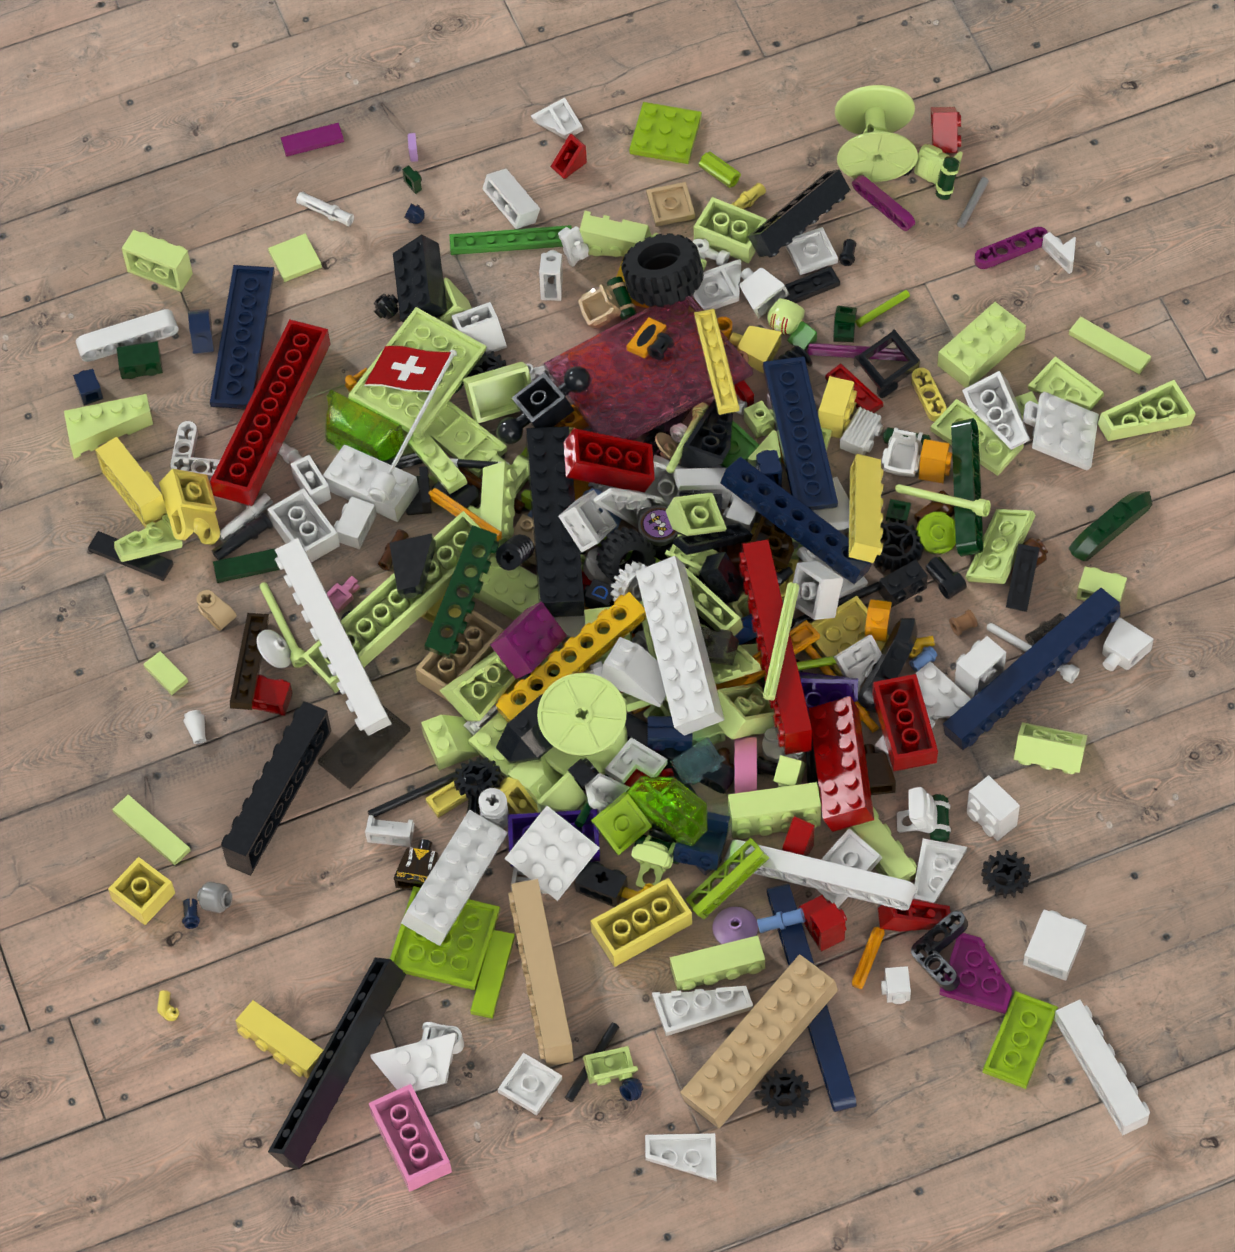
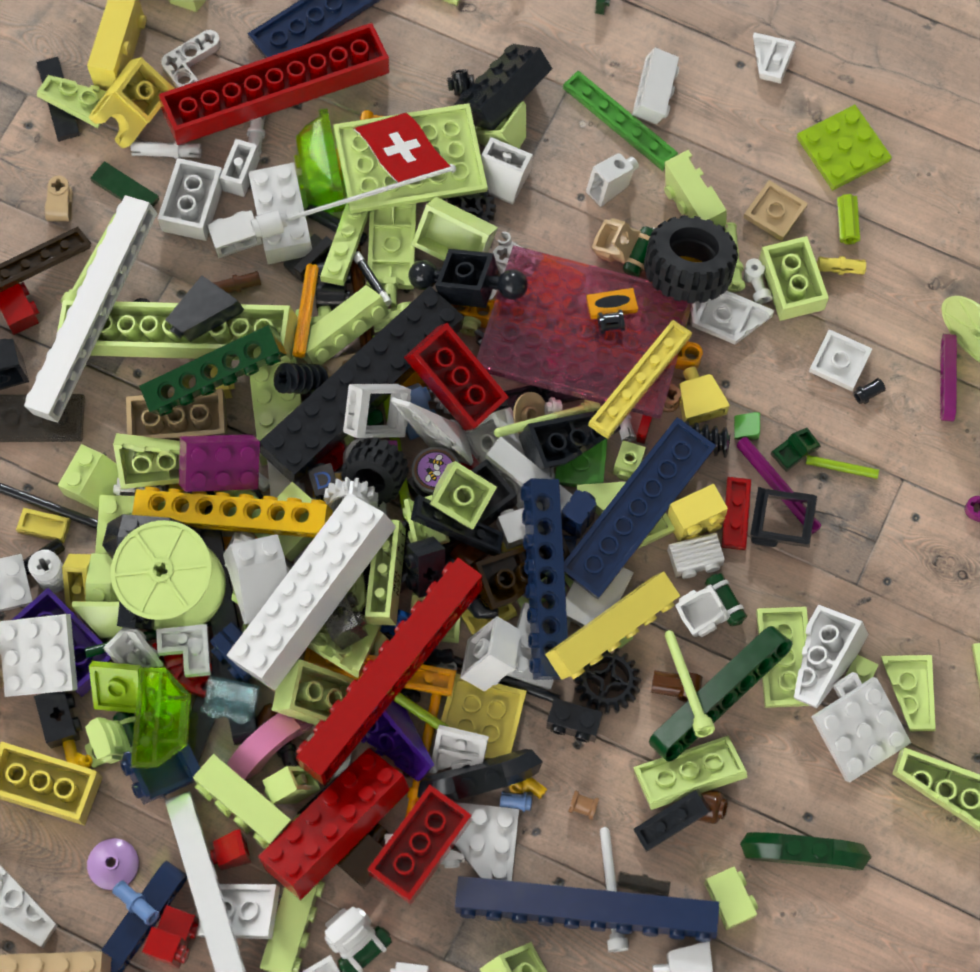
camera: 45 degrees right, 10 degrees up
(250, 531) = (155, 164): black pin -> none
(274, 649) = (49, 273): white dish -> none
(342, 595) = (155, 280): bright pink plate -> none
(415, 214) = (571, 28): dark blue plate -> none
(477, 777) = (69, 533): black gear -> none
(570, 157) = (741, 96): red slope -> none
(573, 245) = (654, 170): white hips -> none
(717, 963) = (59, 880): yellowish green brick -> none
(730, 881) = (143, 825): lime fence -> none
(761, 290) = (757, 354): white torso -> none
(781, 641) = (384, 674): yellowish green axle -> none
(785, 316) = (749, 395): yellowish green helmet -> none
(799, 214) = (862, 319): black brick -> none
(812, 285) = (803, 387): black tile -> none
(878, 619) = (515, 729): light orange slope -> none
(899, 510) = (646, 654): dark green plate -> none
(928, 403) = (791, 588): light yellow beam -> none
(935, 461) = (720, 642): light orange brick -> none
(937, 532) = (652, 705): lime tile -> none
(948, 581) = (614, 756): black piece -> none
(979, 666) = (544, 860): white brick -> none
(981, 345) = (882, 582): yellowish green brick -> none

